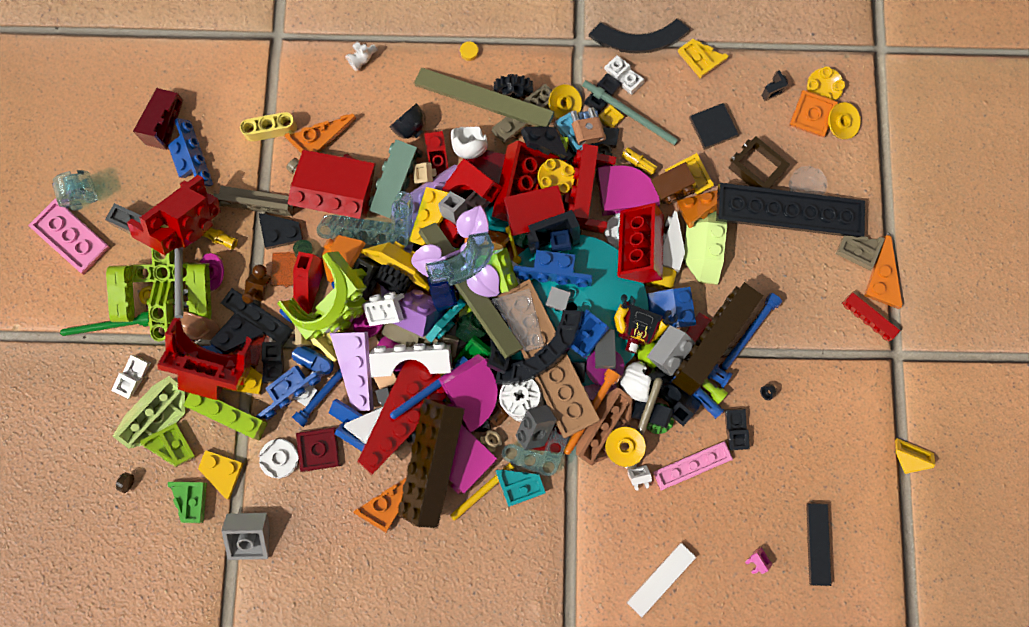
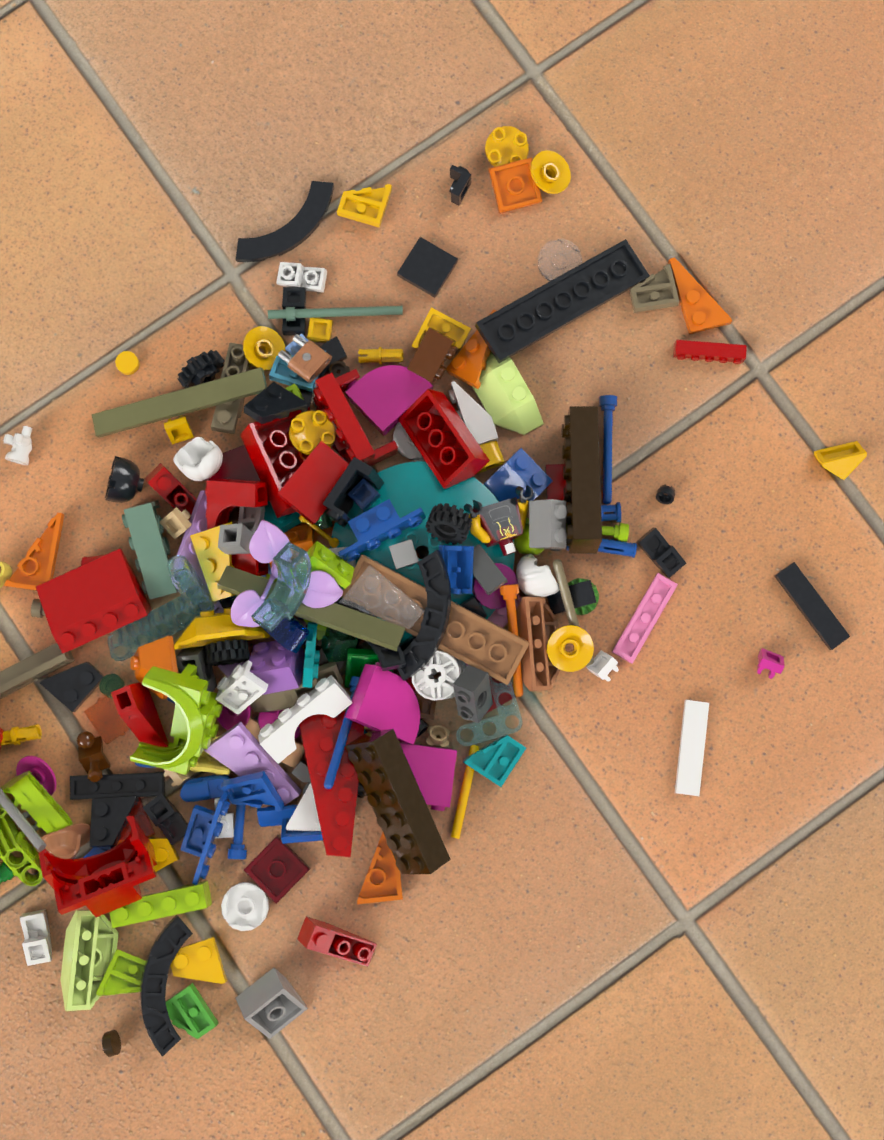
camera: 35 degrees left, 5 degrees up
(180, 464) = (154, 985): none -> black tile
(320, 528) = (335, 942): none -> red slope
(341, 384) = (253, 791): none -> blue wing
(469, 116) = (178, 430): none -> yellow tile
(603, 300) = (448, 524): none -> black tyre
(682, 403) = (590, 566): black arch -> none
(746, 175) = (498, 295): dark brown window -> none

